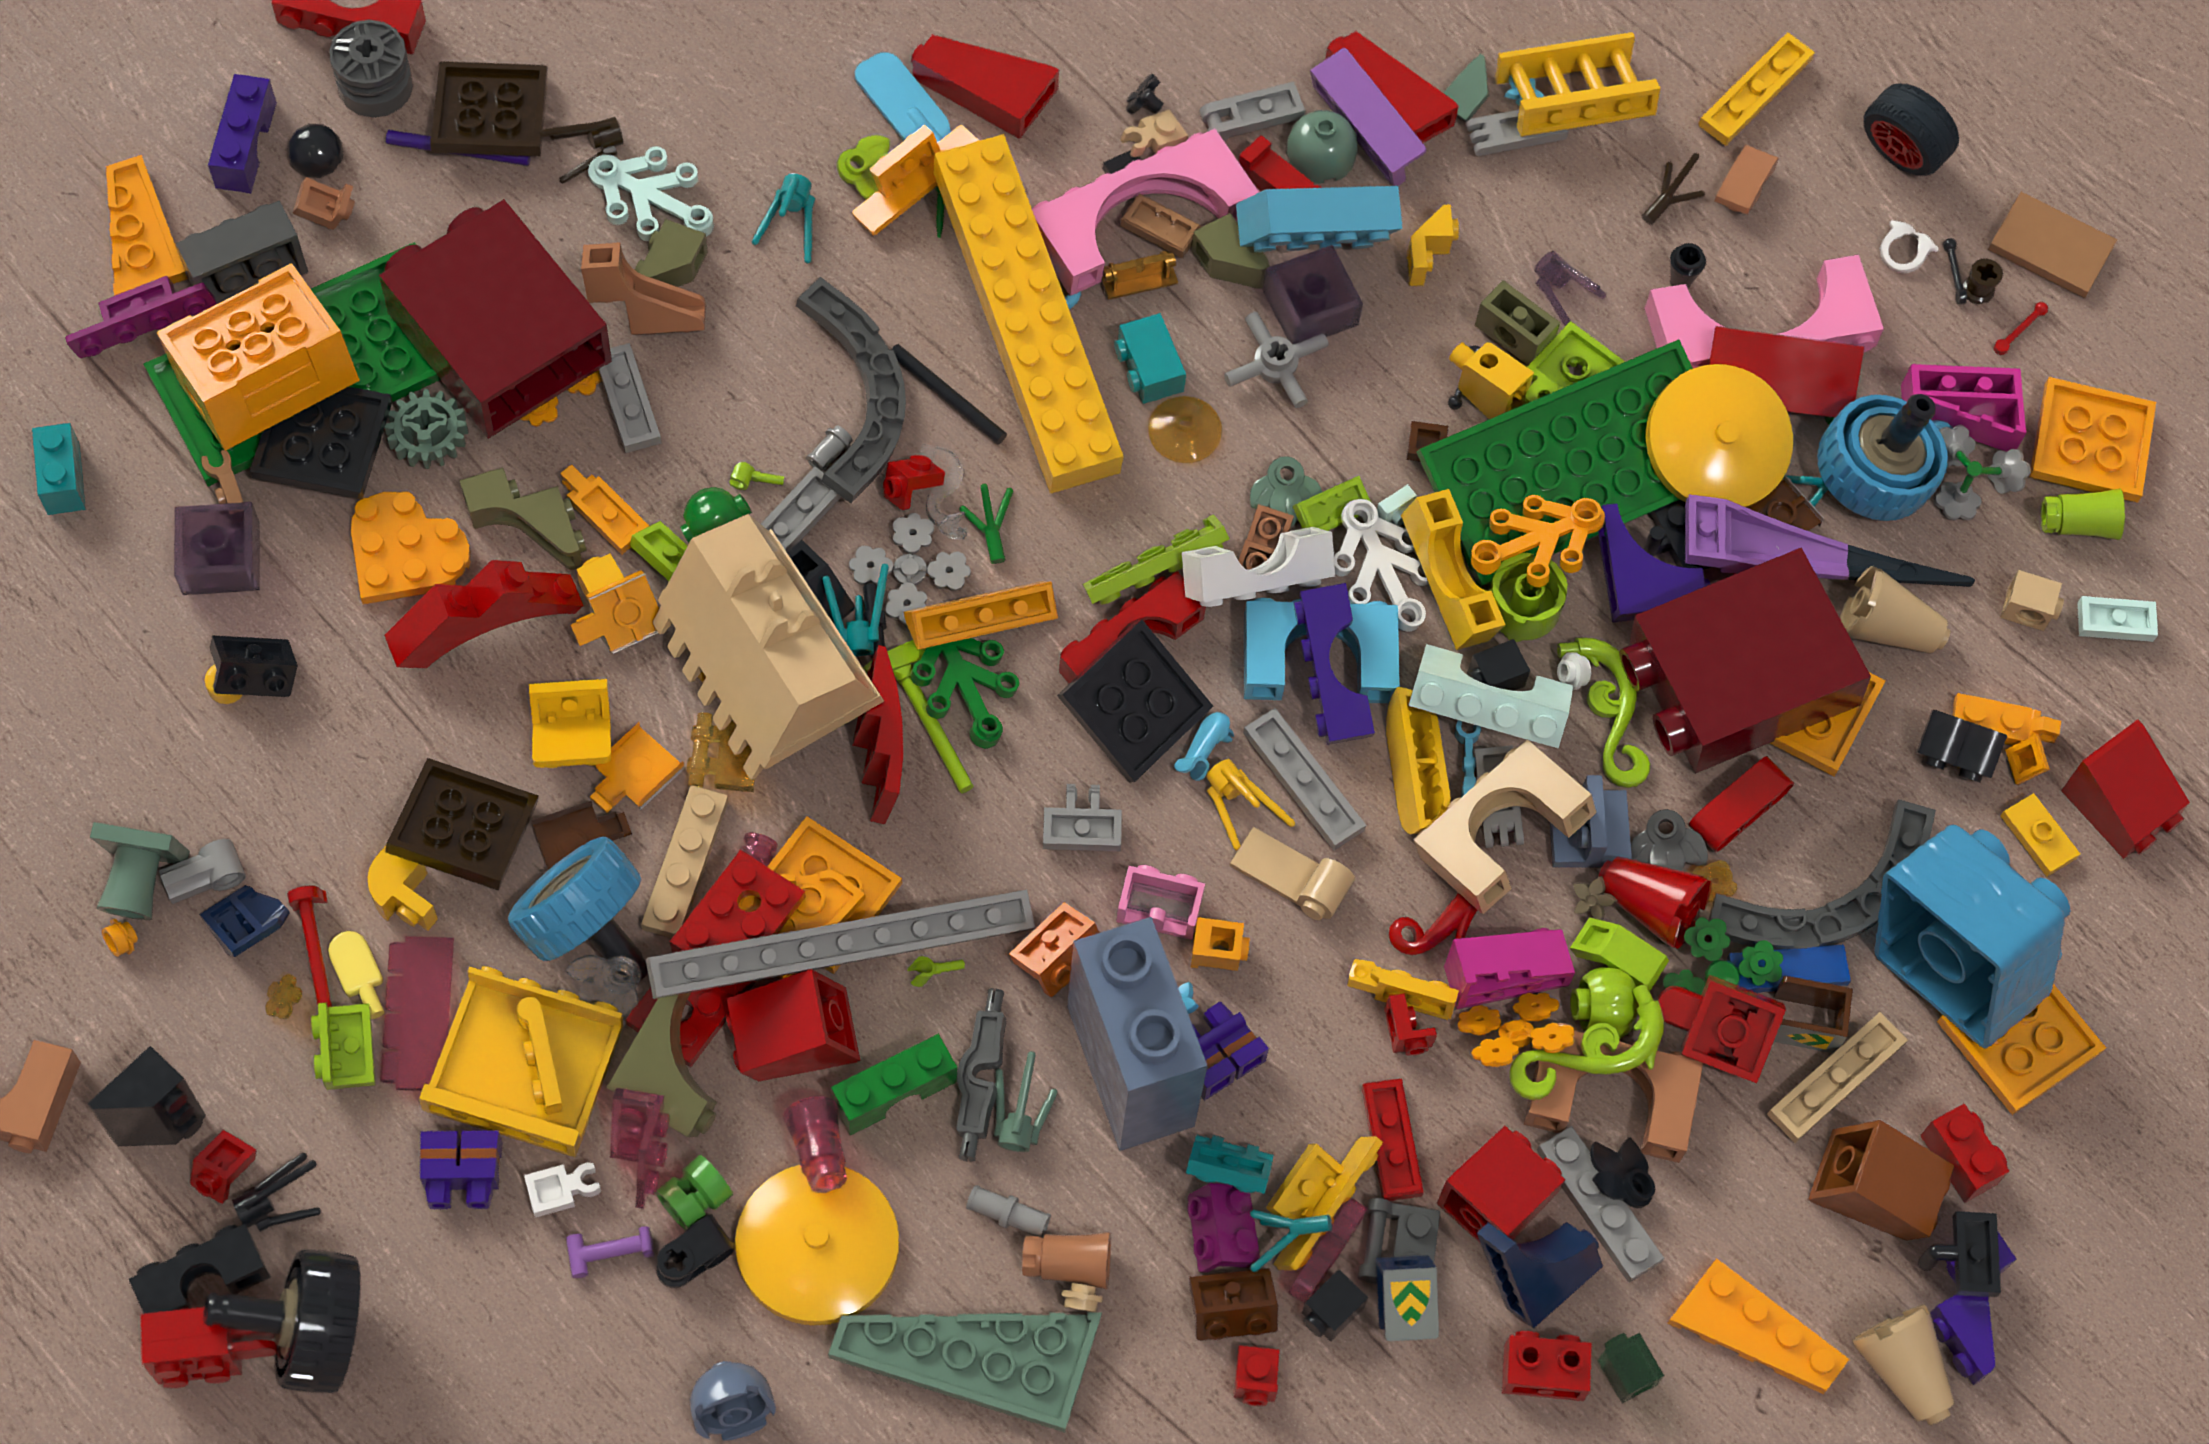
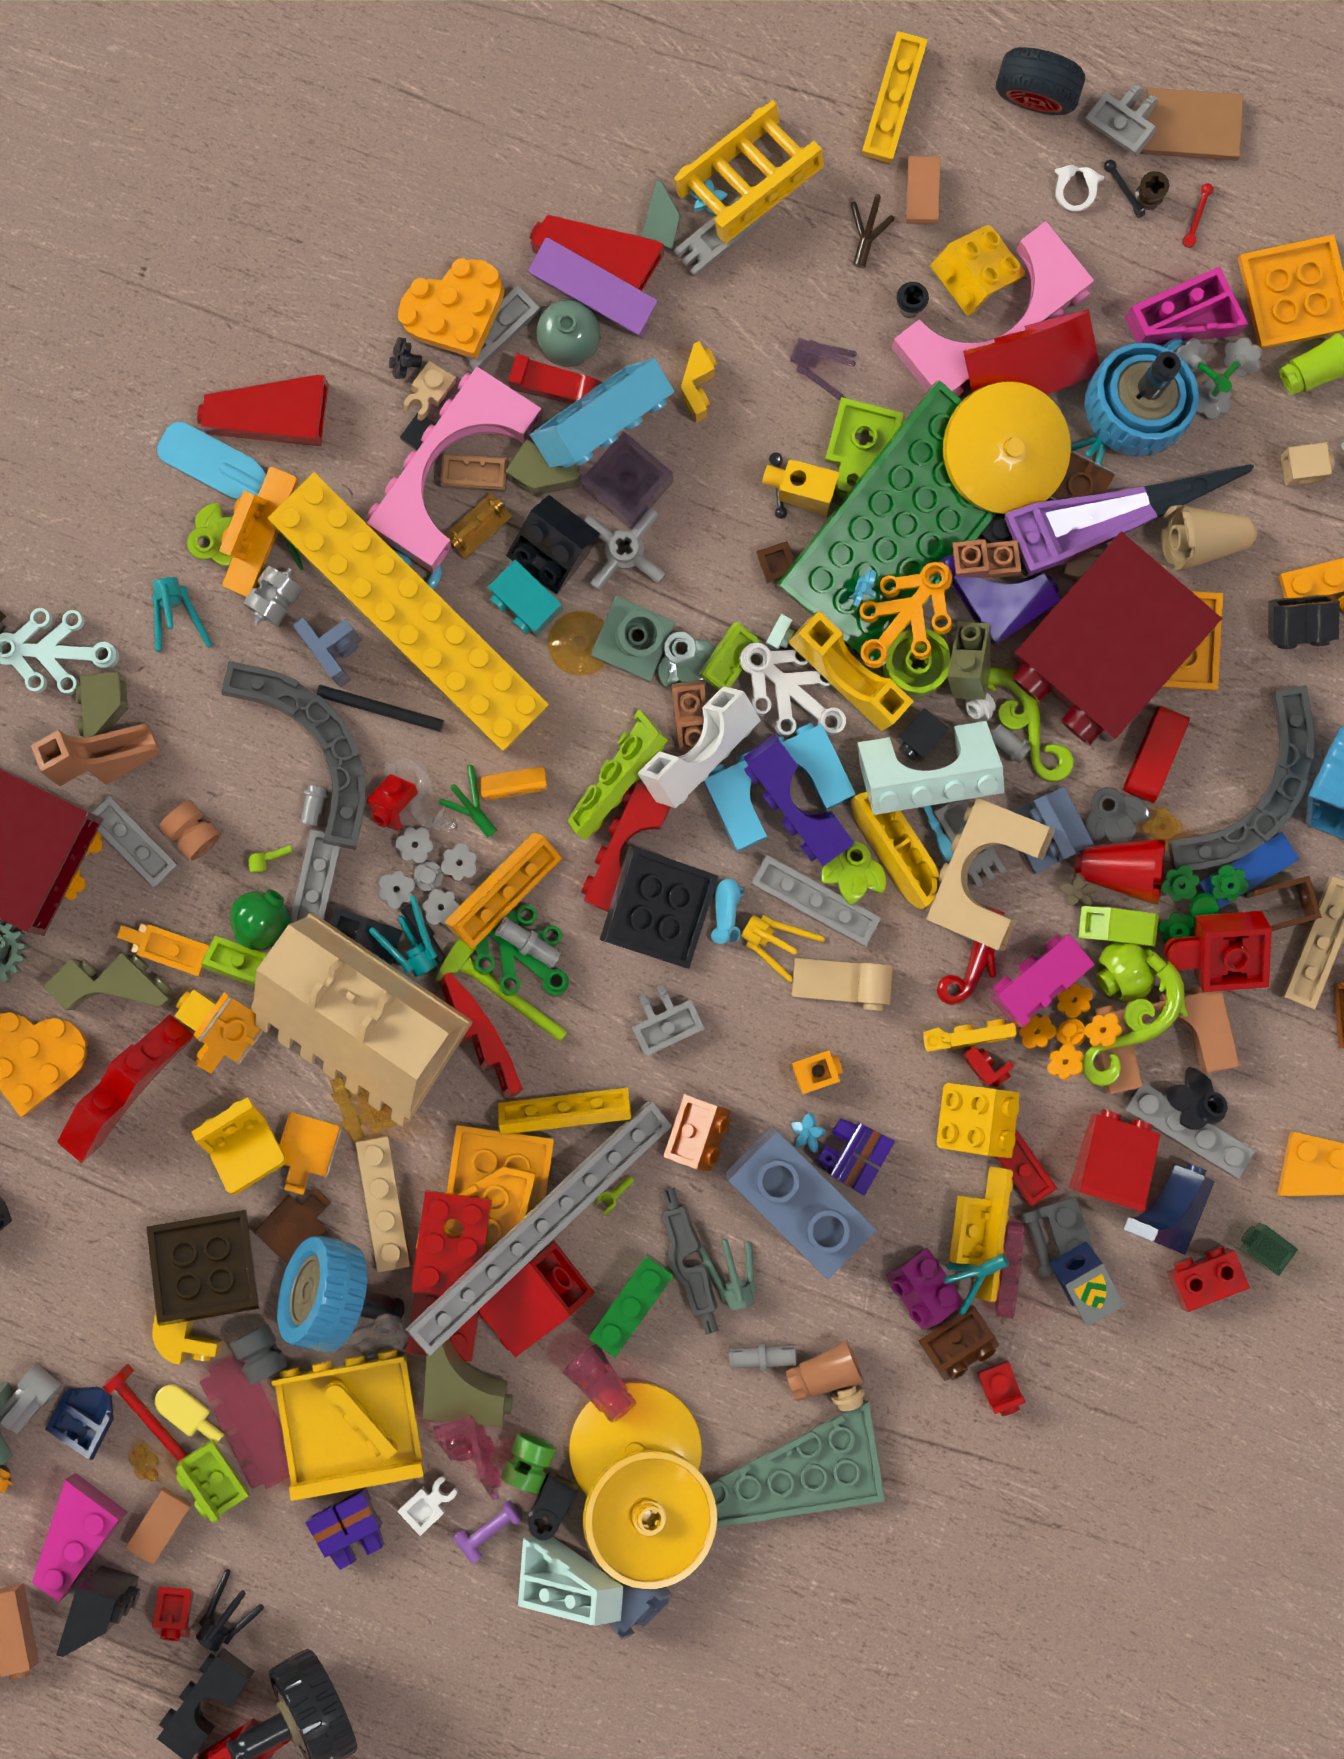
camera: 15 degrees left, 20 degrees up
(176, 1022) = (75, 1536): none -> dark pink wedge
(260, 1065) = (158, 1525): none -> nougat slope
(469, 940) = (258, 1354): none -> dark grey wheel
(663, 1333) = (566, 1584): none -> light aqua wedge
(692, 411) = (188, 828): none -> nougat wheel
(759, 847) = (433, 1168): clear pink bush -> none
(796, 1306) = (650, 1519): none -> yellow dish
(893, 242) = (272, 596): none -> light grey wheel
(915, 854) = (564, 1111): none -> yellow plate
(932, 305) = (337, 642): none -> sand blue bracket
(979, 673) = (528, 942): none -> light grey pin
(1045, 526) = (513, 783): none -> light orange slope
(1166, 898) = (756, 1057): bright pink window -> none
(1207, 321) = (552, 543): none -> black slope
(1217, 76) = (454, 310): none -> light orange plate
(1230, 1164) = (909, 1243): teal plate -> none
(1241, 443) = (616, 644): none -> sand green plant
(1333, 1306) = (1033, 1311): black brick -> none
(1357, 771) = (854, 876): none -> lime plate
(1374, 1074) = (978, 1120): none -> yellow bracket
(1505, 491) = (864, 587): none -> medium azure plant
(1516, 322) = (800, 422): olive brick -> none
(1583, 617) = (970, 661): none -> olive slope
(1592, 730) = (1010, 743): none -> light grey pin
(1650, 527) = (986, 559): none -> nougat slope
(1767, 267) = (977, 268): none -> yellow bracket
(1982, 208) = (1121, 123): none -> light grey hinge

